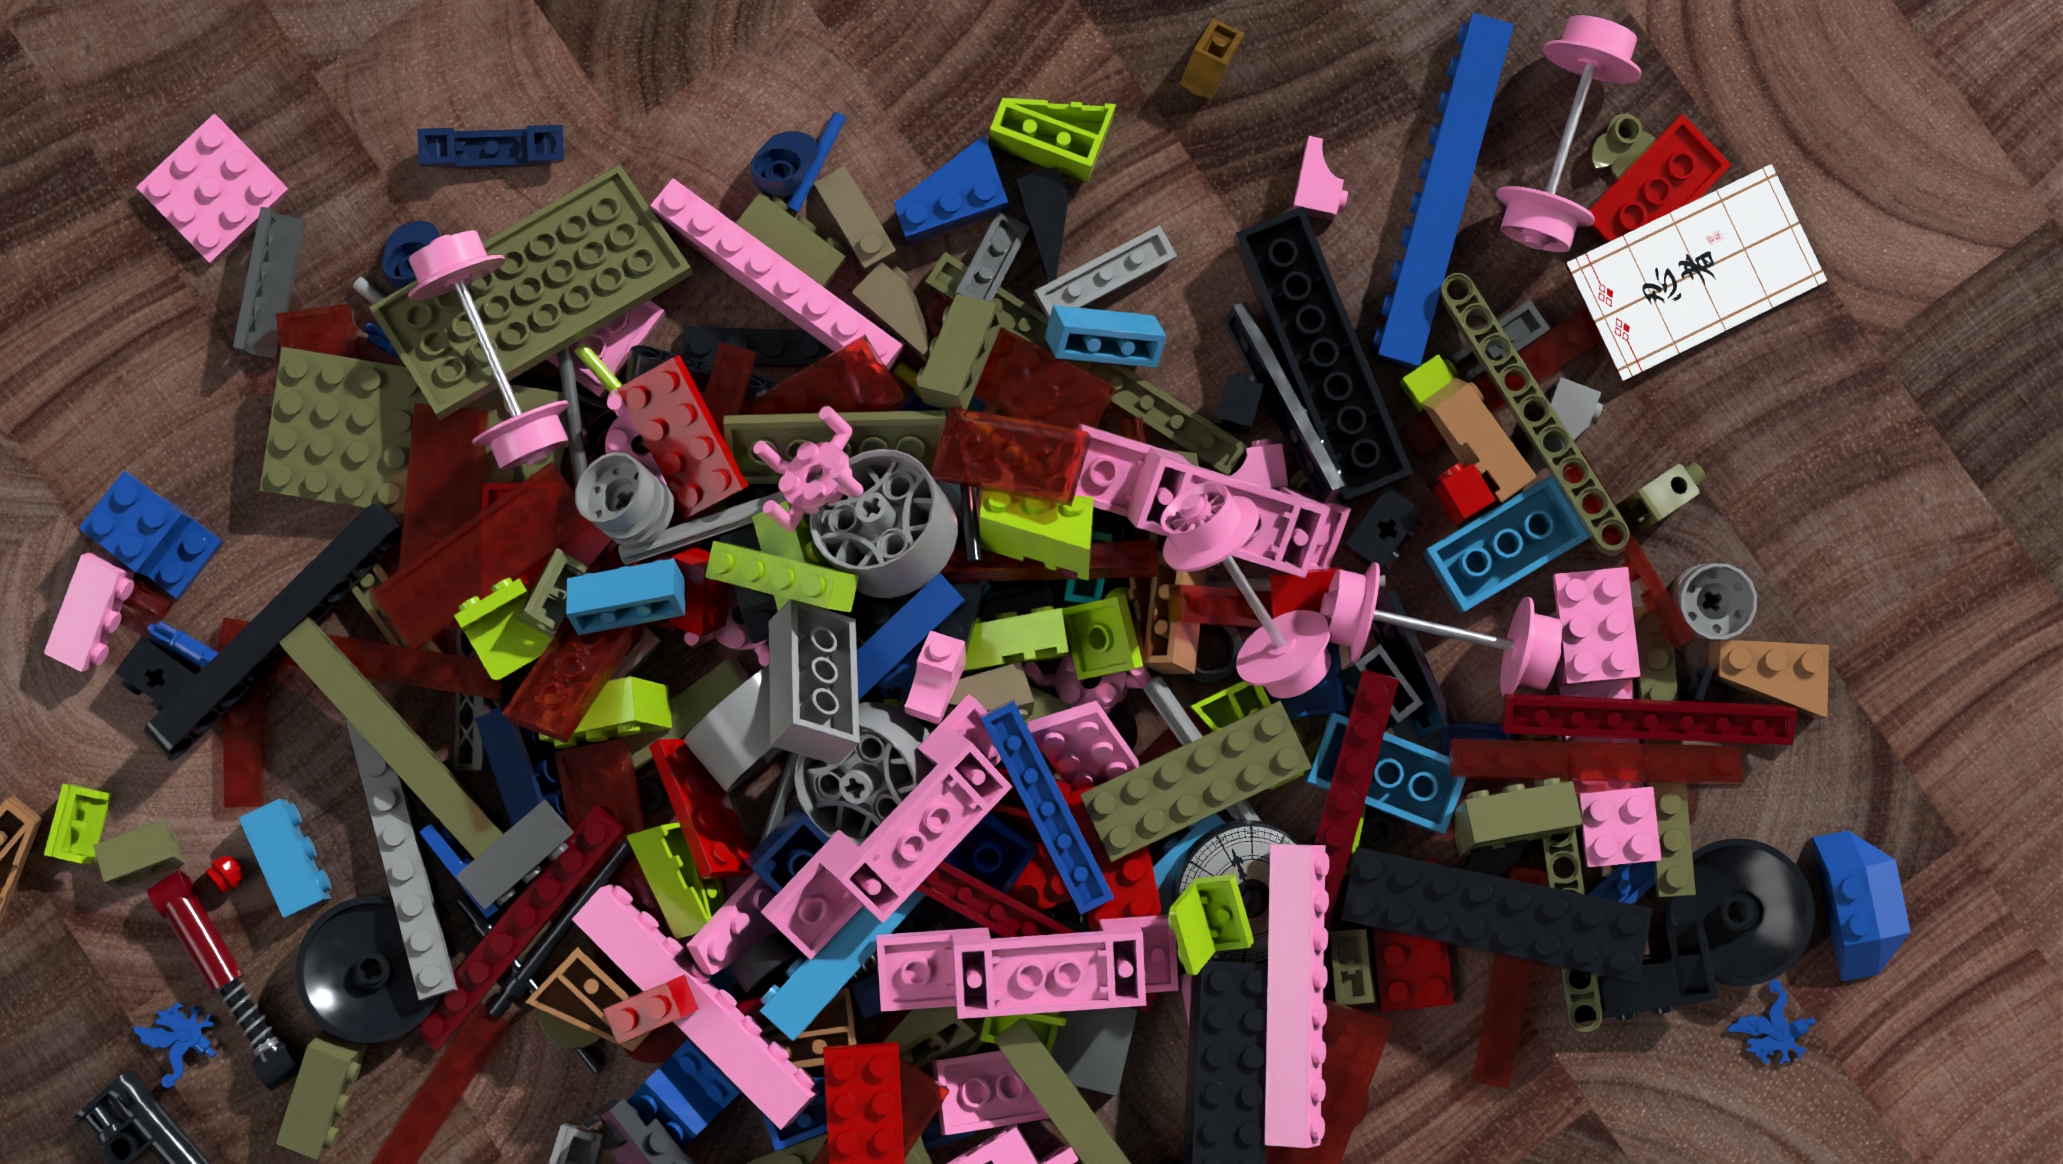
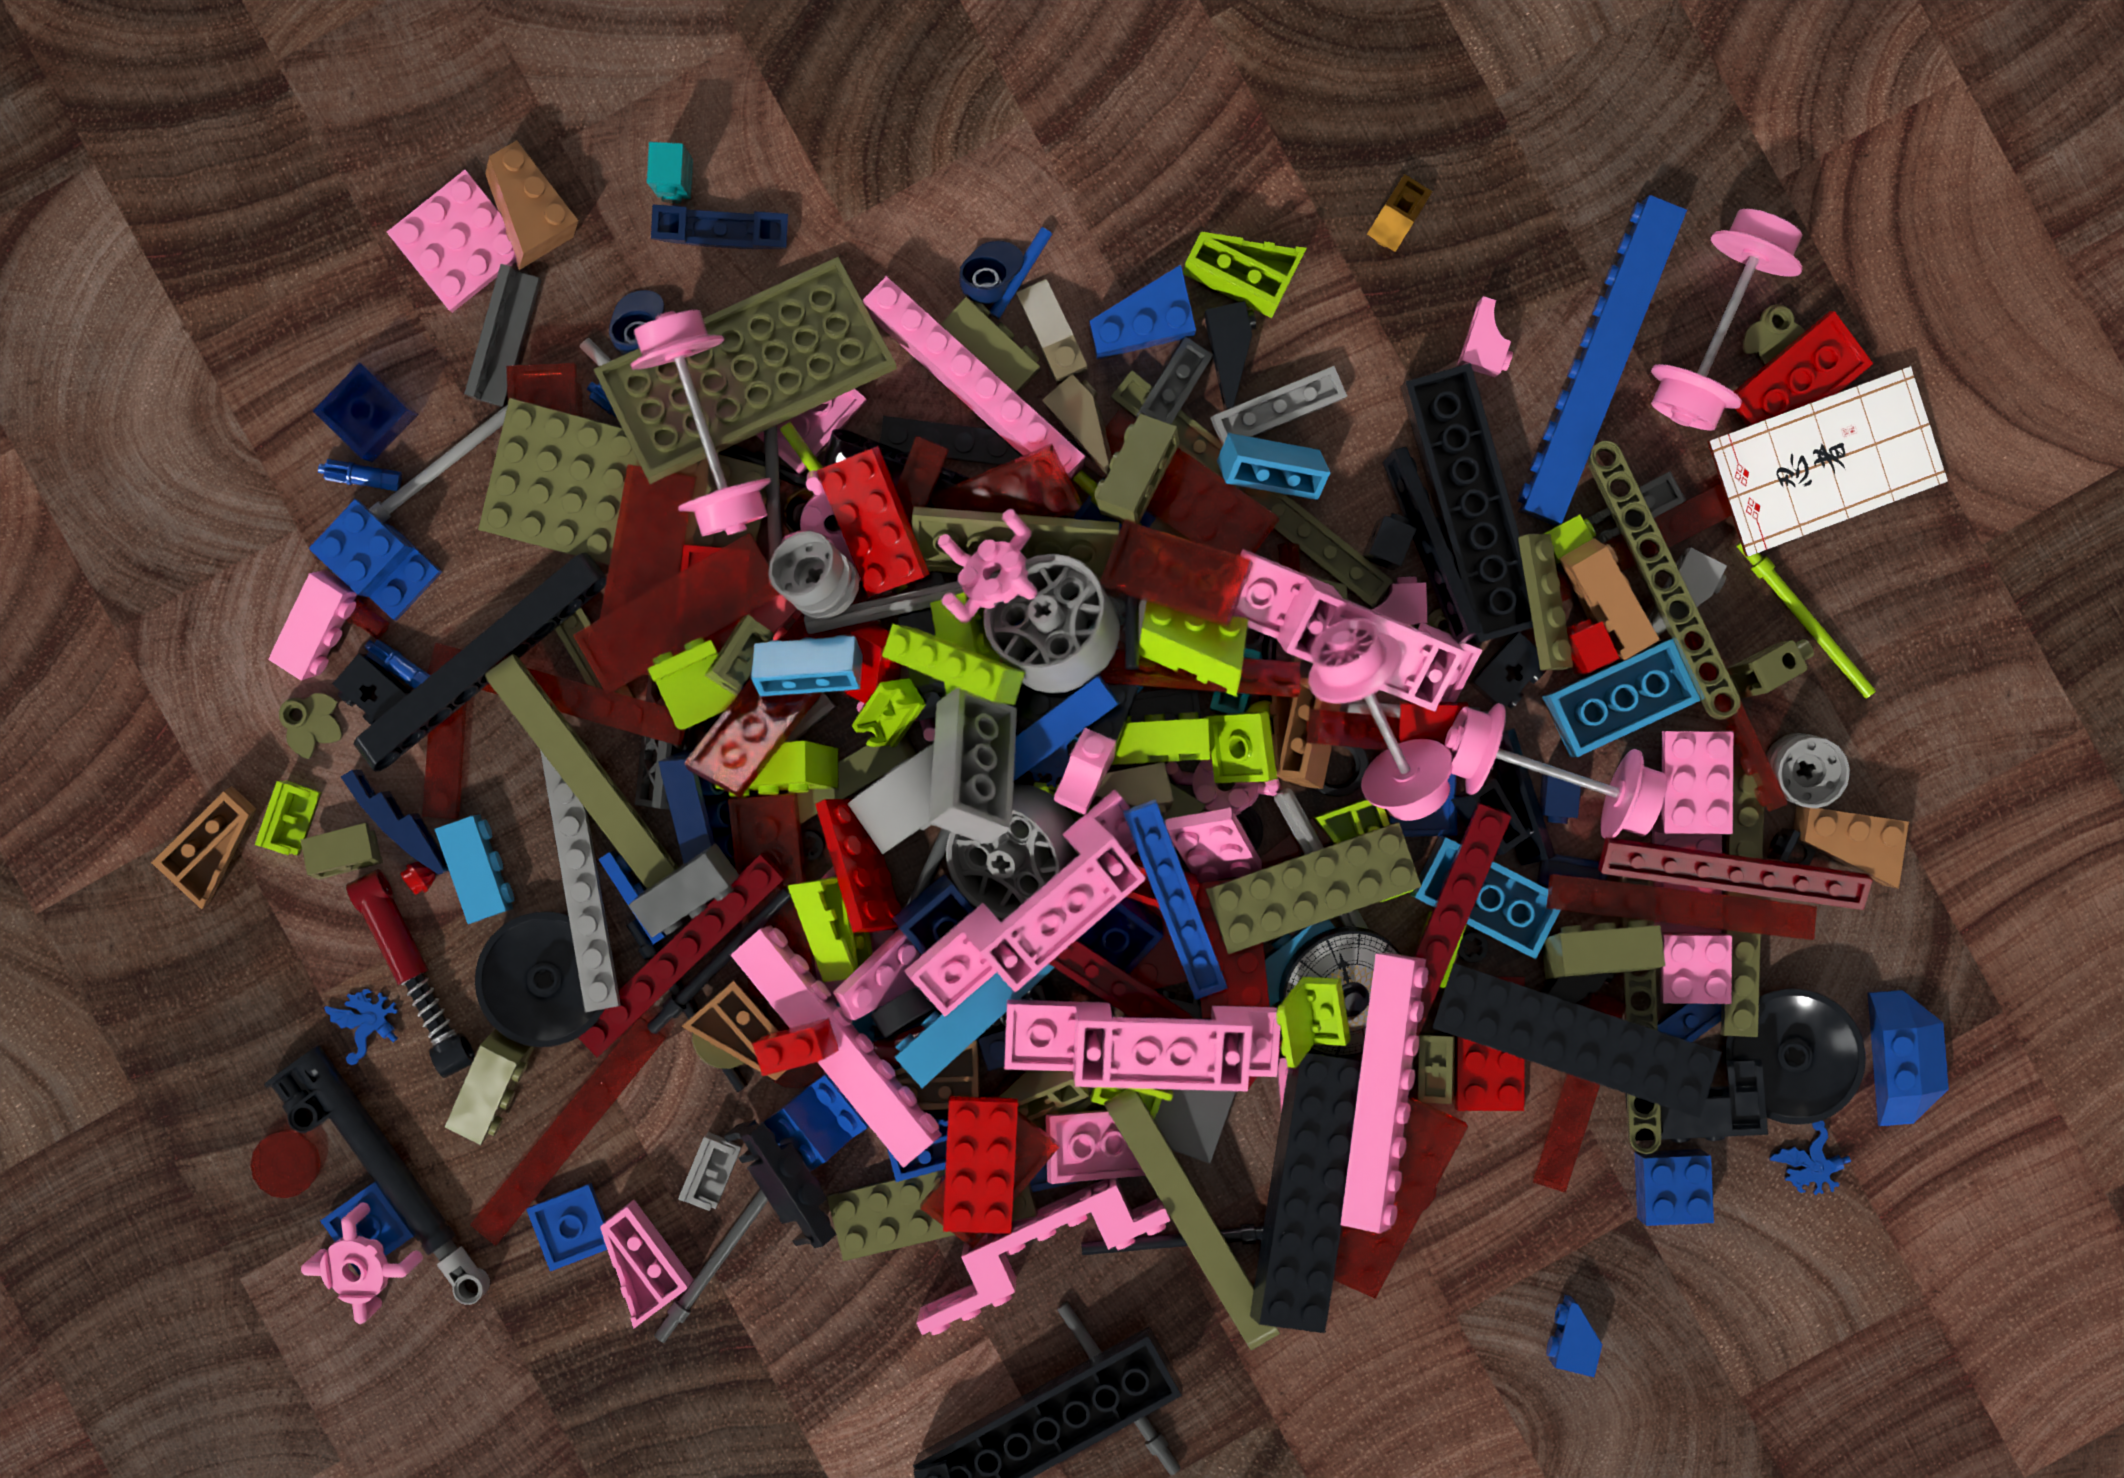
camera: 10 degrees right, 5 degrees up
(99, 720) = (314, 726): none -> olive plate
(128, 379) = (365, 412): none -> clear blue brick
(128, 447) = (360, 475): none -> blue piece
(206, 823) = (406, 831): none -> dark blue slope
(214, 427) = (383, 510): none -> light grey bar
(286, 143) = (529, 205): none -> medium nougat wedge
(433, 92) = (670, 171): none -> teal brick
(719, 639) = (890, 712): none -> lime hinge
(1411, 449) = (1545, 602): none -> olive plate
(1452, 661) = (1559, 799): none -> dark blue brick
(1626, 1070) = (1674, 1187): none -> blue brick
(1642, 393) = (1764, 568): none -> lime bar

